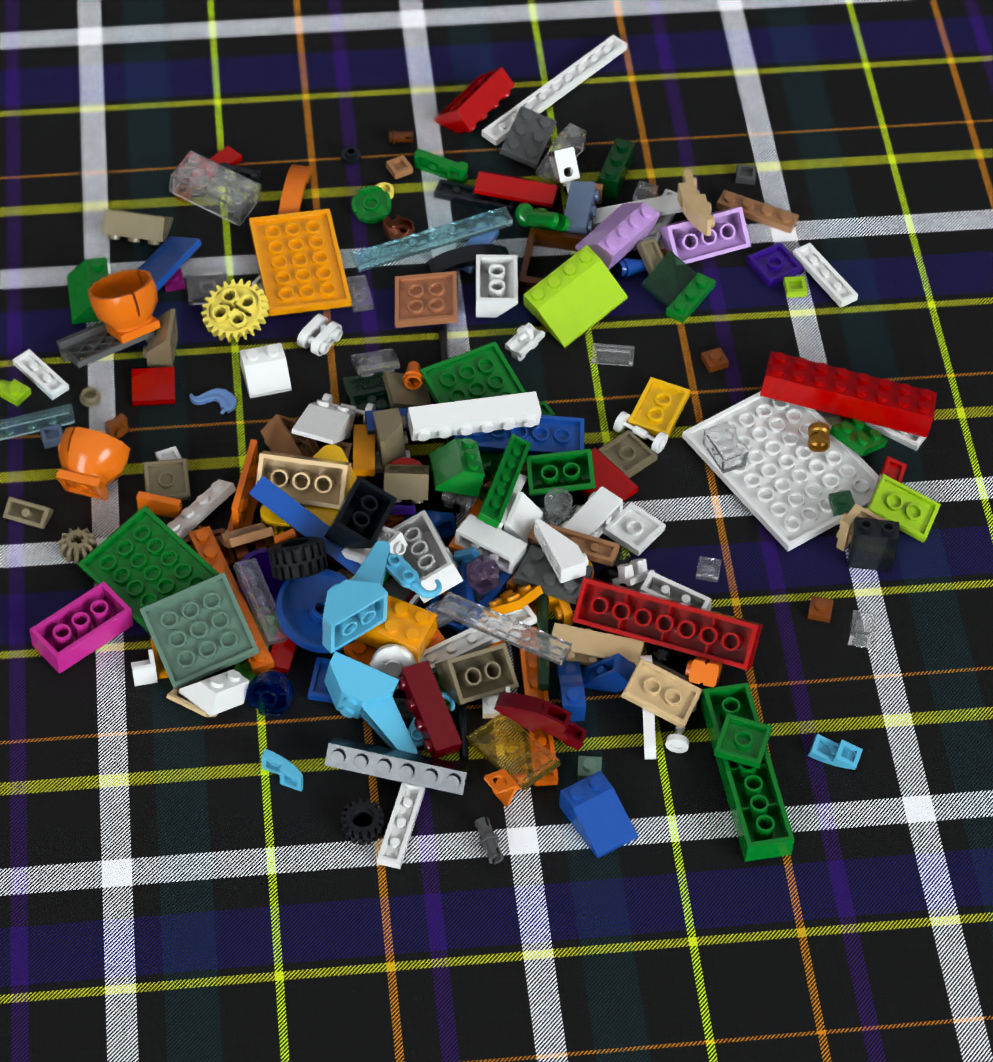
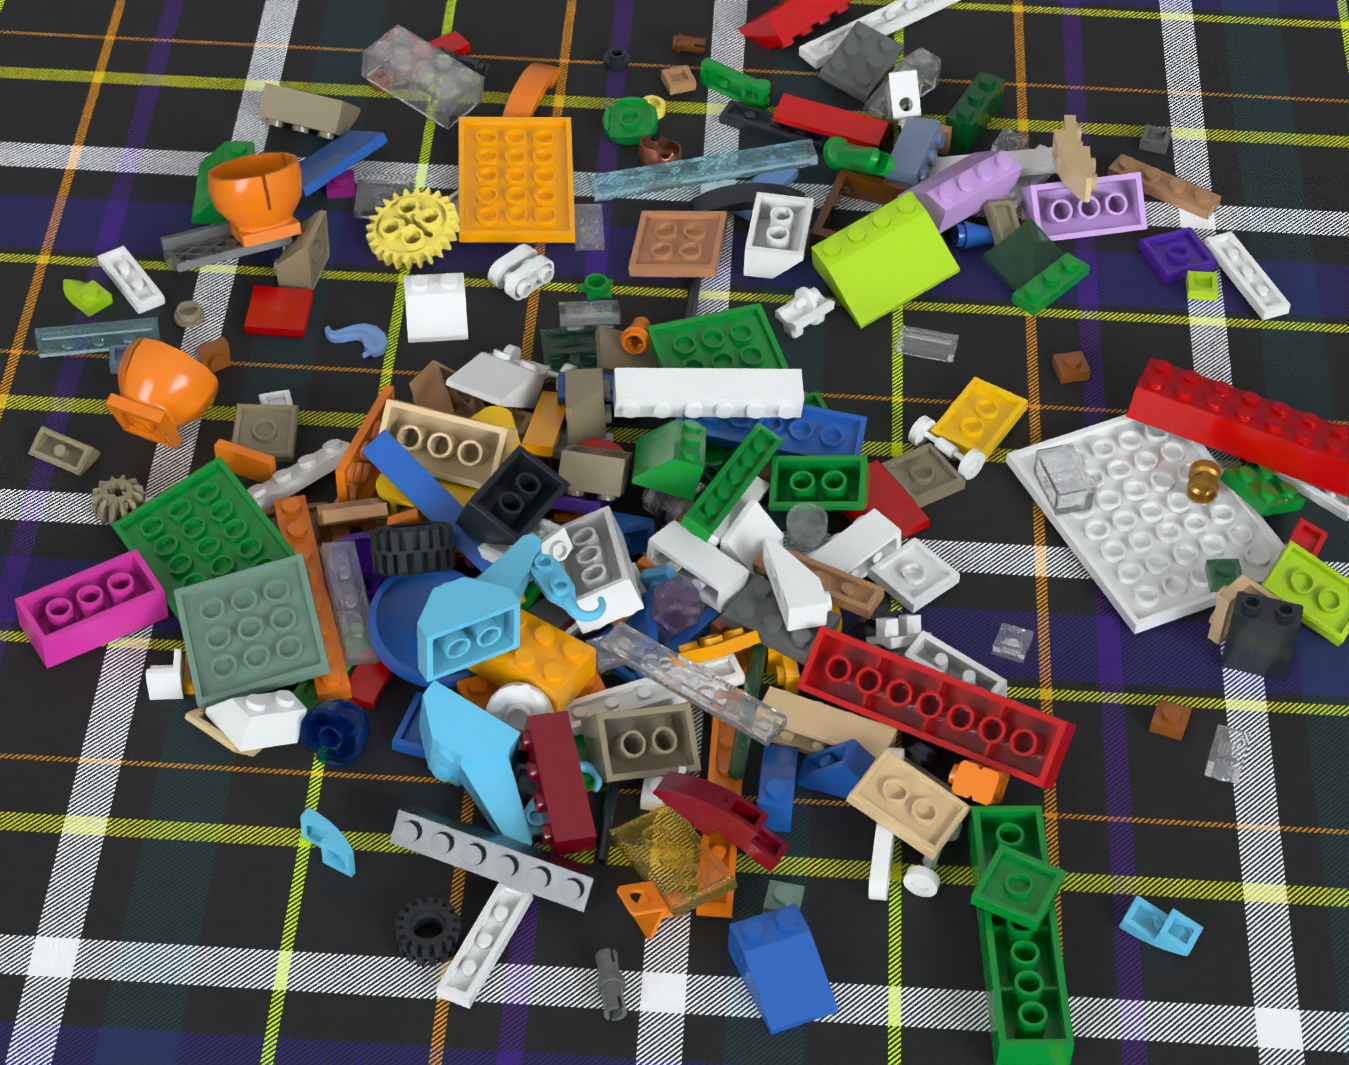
camera: 10 degrees right, 5 degrees down
(373, 334) = (596, 286): none -> green plate

